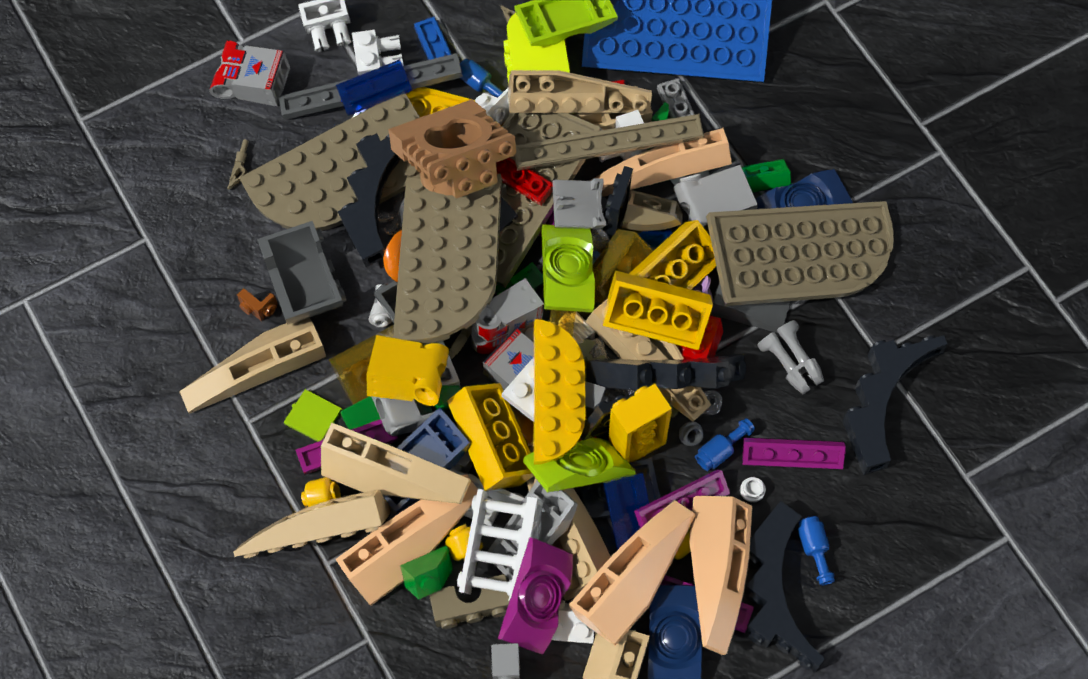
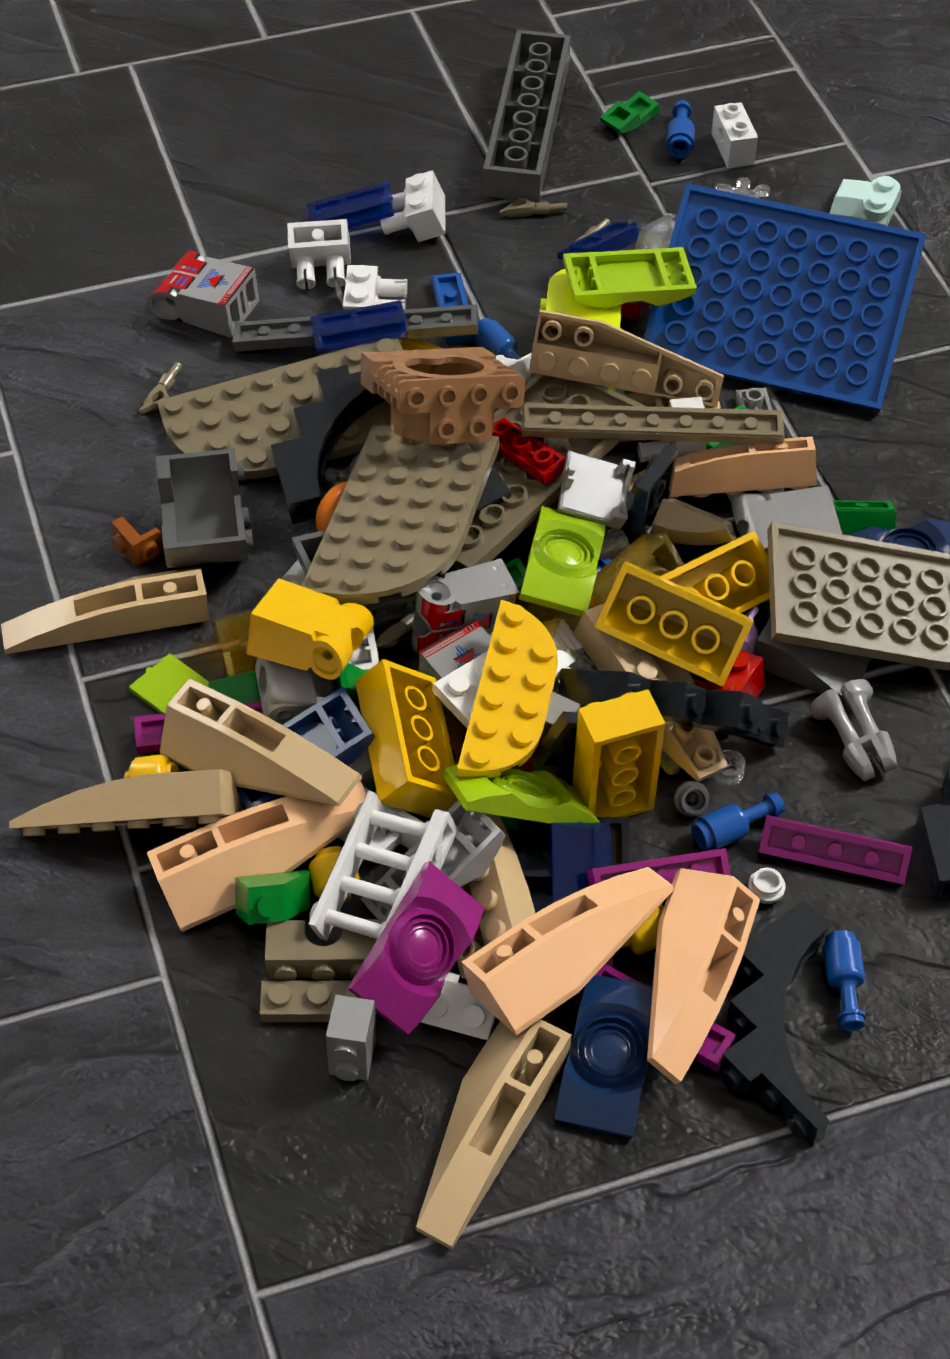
camera: 10 degrees right, 15 degrees down
(469, 638) = (300, 1000): none -> dark tan plate

